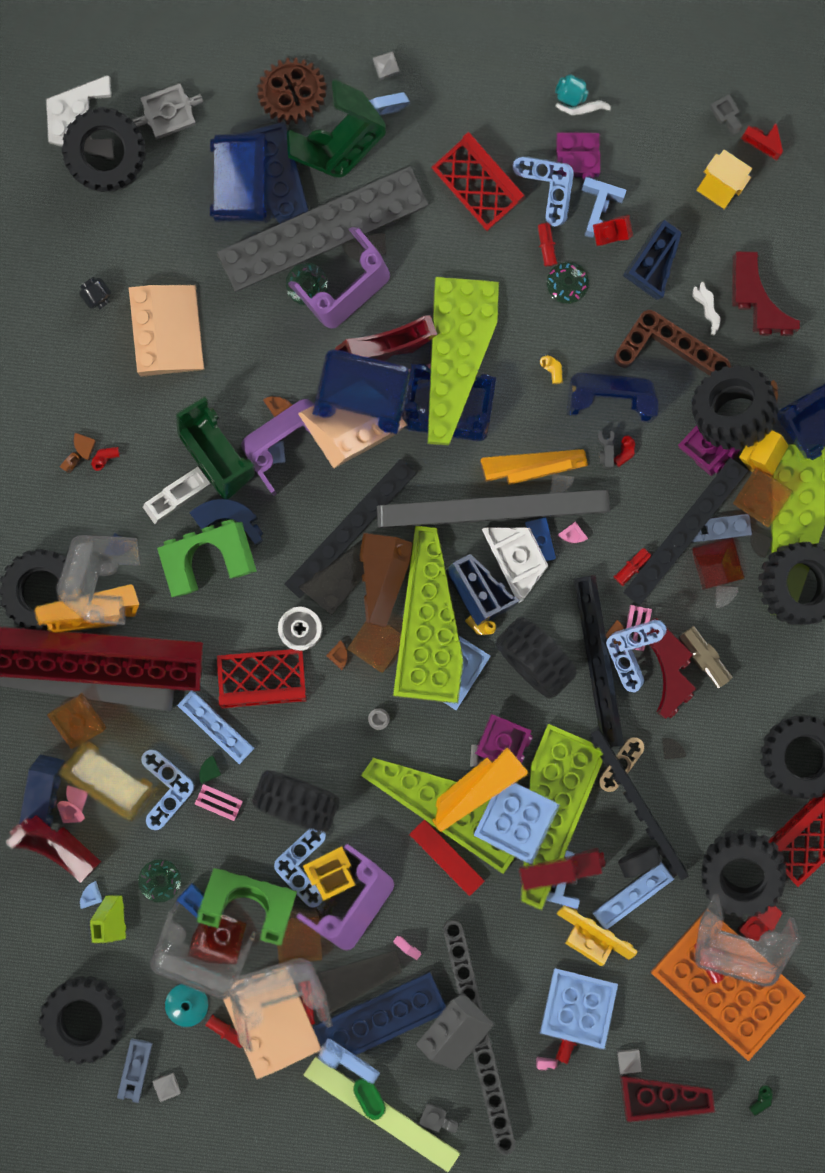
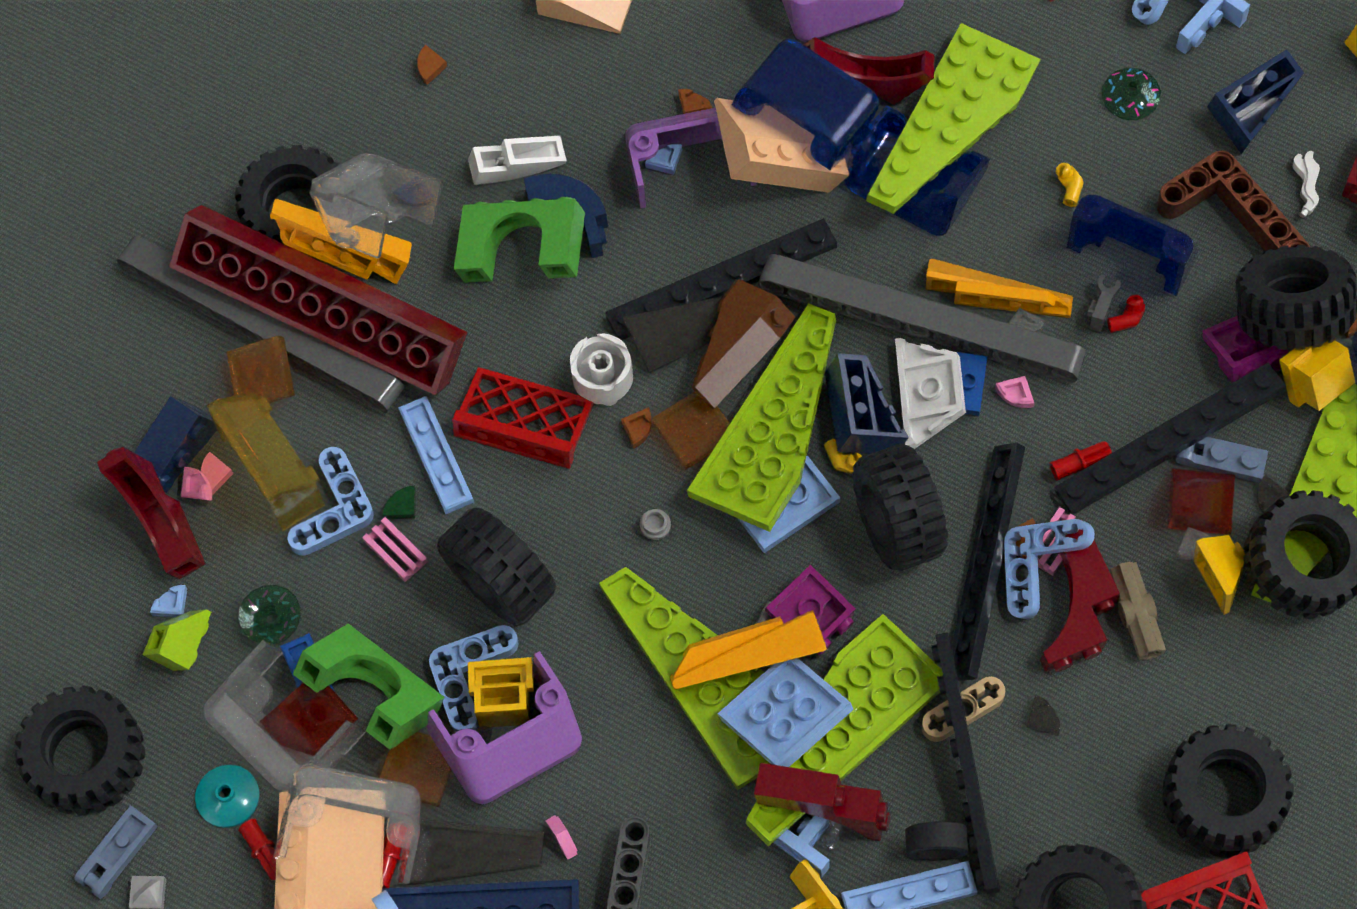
camera: 30 degrees right, 20 degrees down
(70, 462) = (402, 76): dark orange tile -> none
(102, 456) = (446, 84): red arm -> none
(212, 450) = (584, 109): dark green windscreen -> none
(447, 857) = (669, 739): red tile -> none
(547, 244) = (1121, 39): red axle -> none
(613, 230) = (1215, 46): red slope -> none
(750, 610) = (1221, 567): none -> yellow slope
(762, 497) = (1295, 432): clear orange plate -> none

